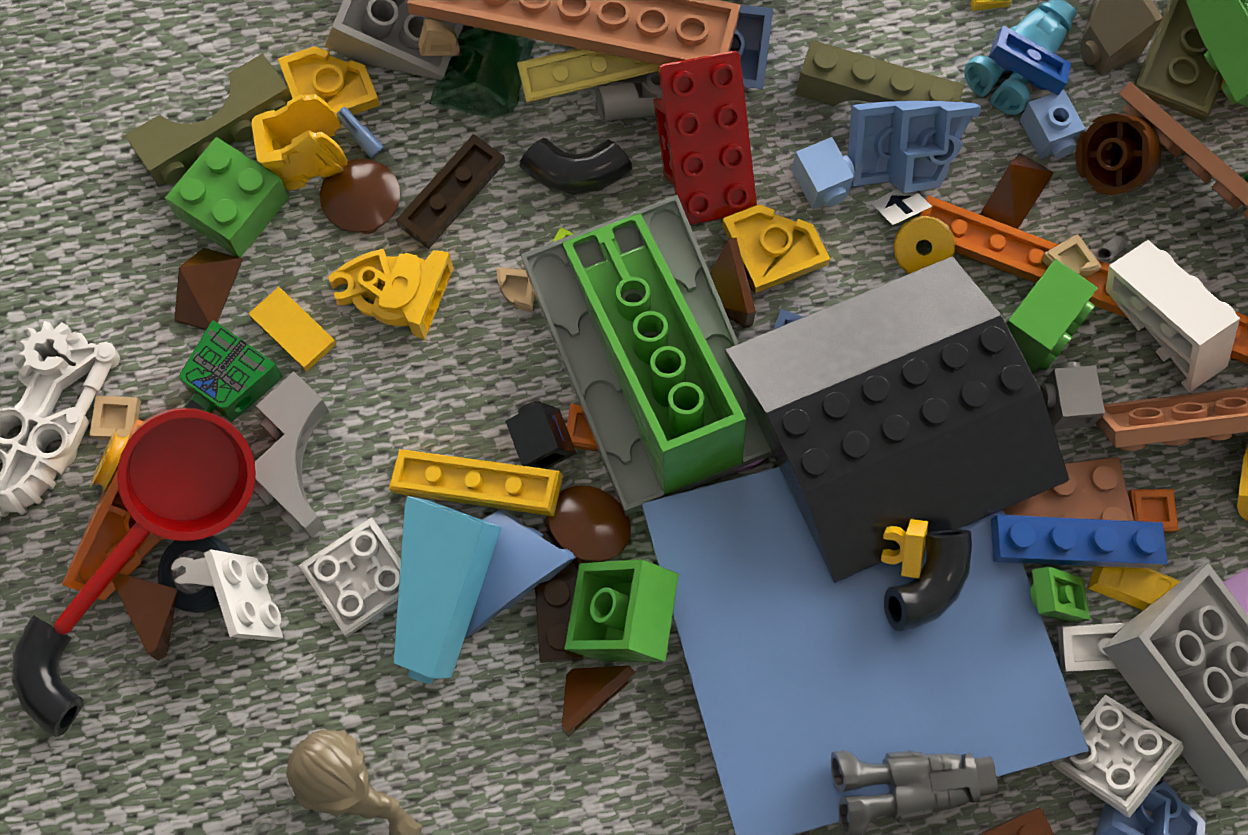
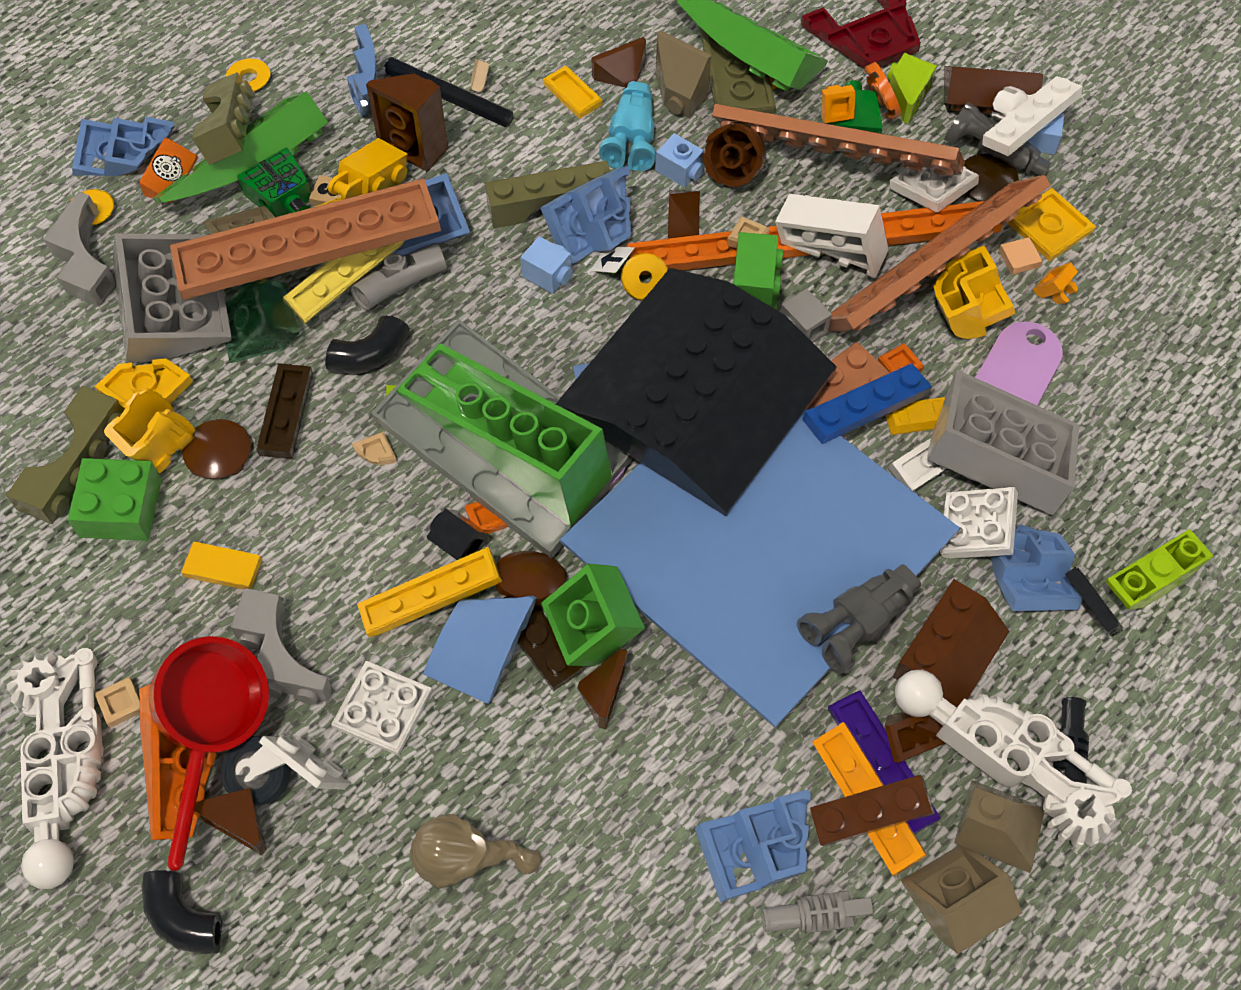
camera: 30 degrees left, 10 degrees down
(109, 460) = (136, 730): yellow piece -> none
(204, 287) = (135, 574): reddish brown slope -> none
(226, 373) = (190, 614): green torso -> none
(361, 134) = (195, 407): medium blue pin -> none
(401, 287) = (284, 496): yellow piece -> none
(438, 39) = (213, 310): tan tile -> none
(439, 585) = (449, 670): medium azure slope -> none
(706, 136) = (450, 276): red bracket -> none
(732, 285) = (533, 363): reddish brown slope -> none
(774, 246) = (541, 330): yellow plate -> none
(911, 549) = (764, 461): yellow tile -> none
(938, 584) = (795, 476): black cylinder -> none
(1030, 60) = (651, 126): blue plate -> none
(1059, 595) = (876, 442): bright green plate -> none
(1111, 249) = (768, 212): light grey piece -> none

